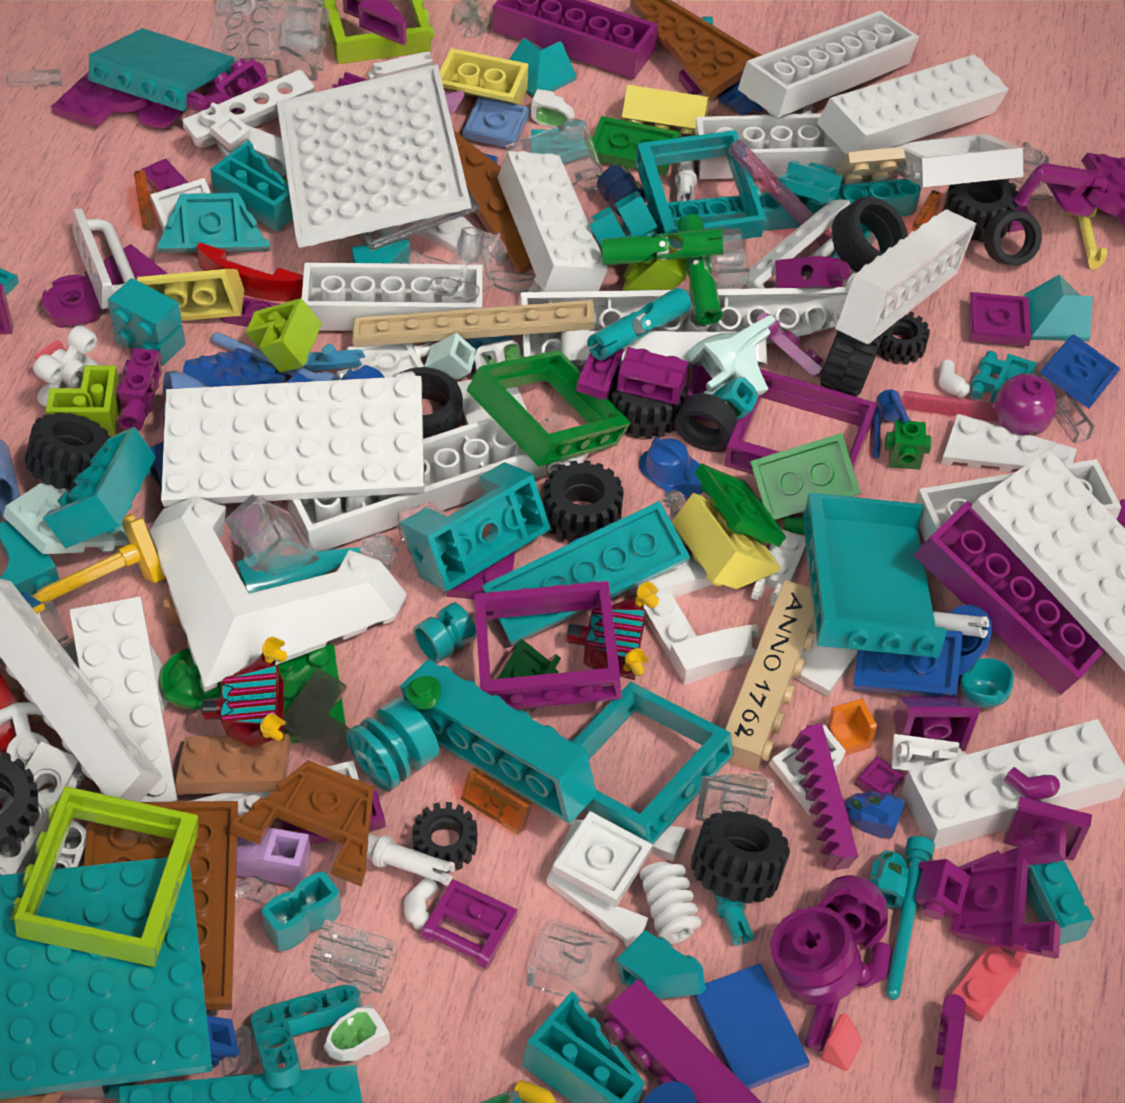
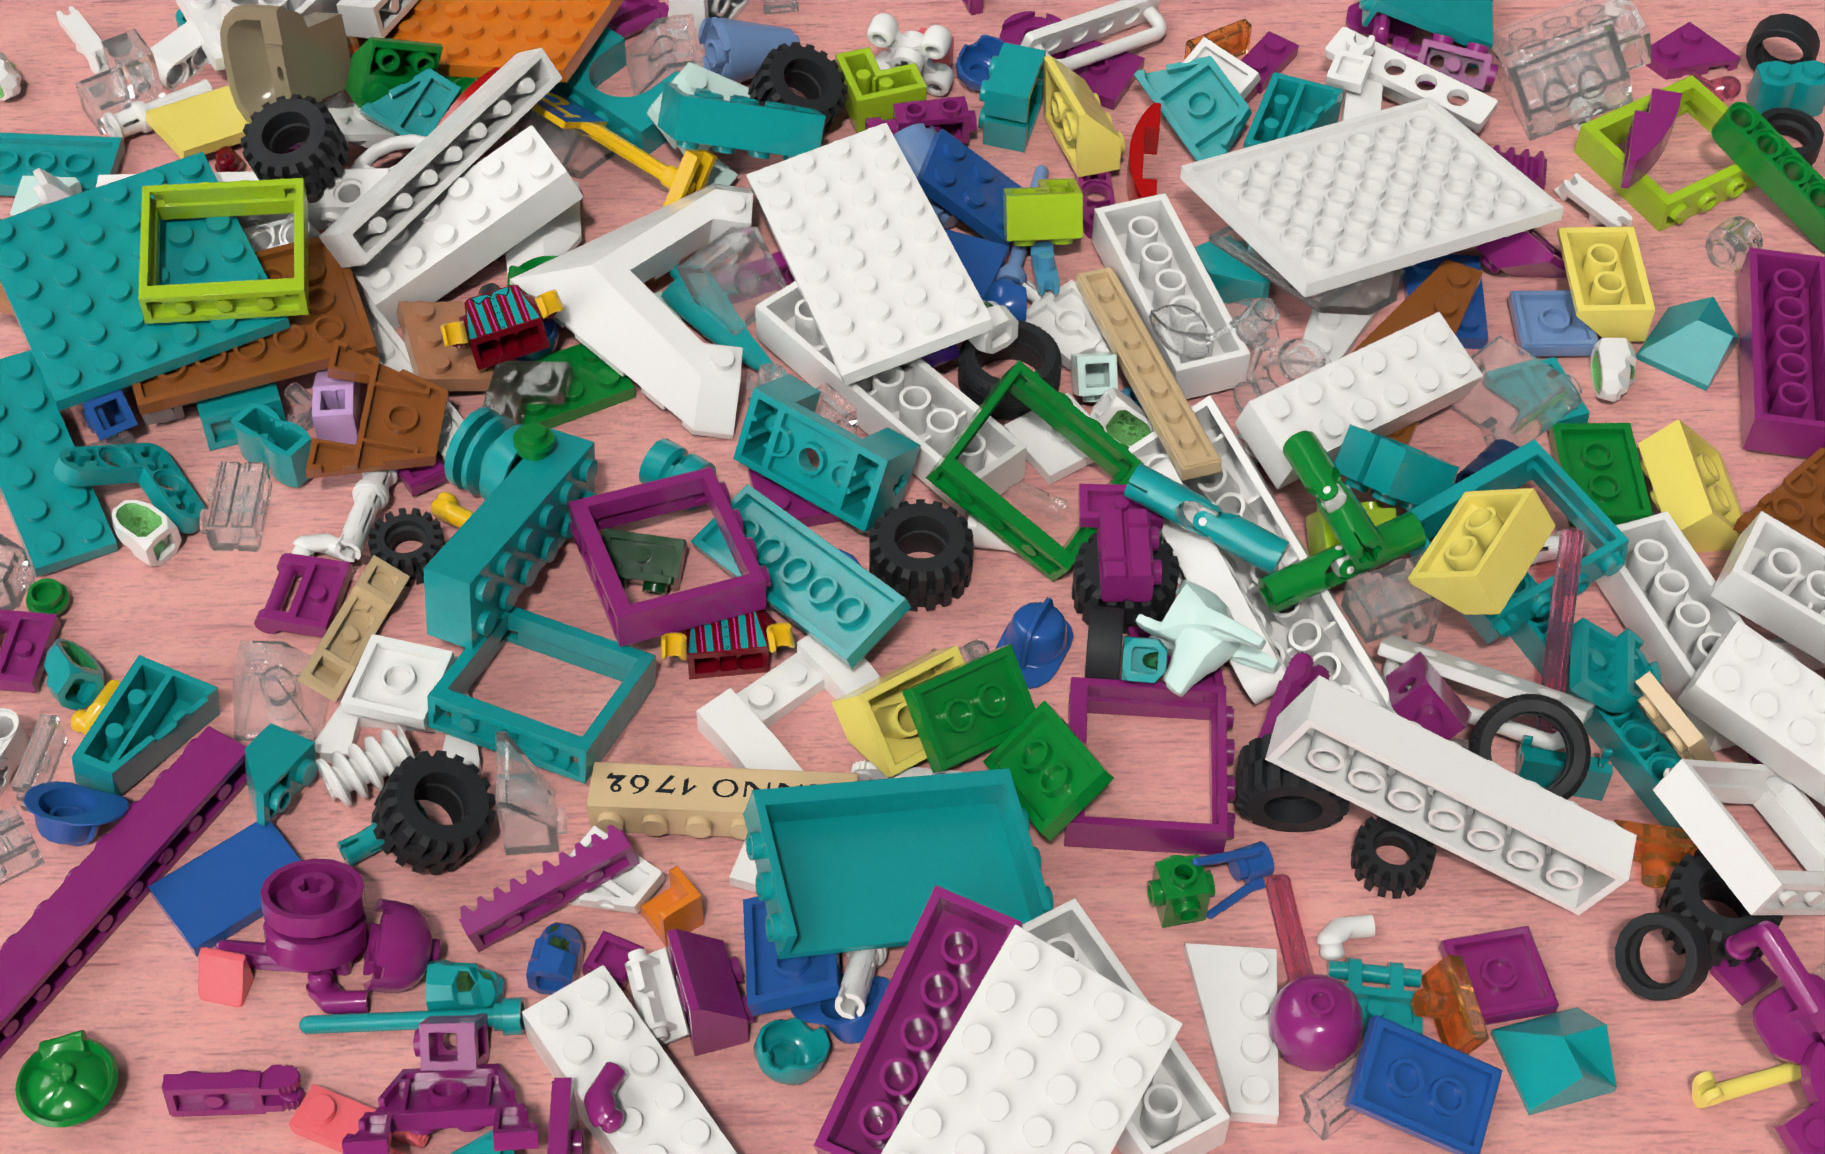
camera: 75 degrees right, 0 degrees up
(98, 324) = (975, 61): none -> blue hair
(249, 939) = (219, 410): none -> teal hinge
(422, 797) = (447, 510): none -> yellow arm
(532, 900) = (352, 628): none -> tan slope
(722, 195) = (1484, 550): none -> light yellow slope
(1021, 342) = (1452, 1005): none -> clear orange tile

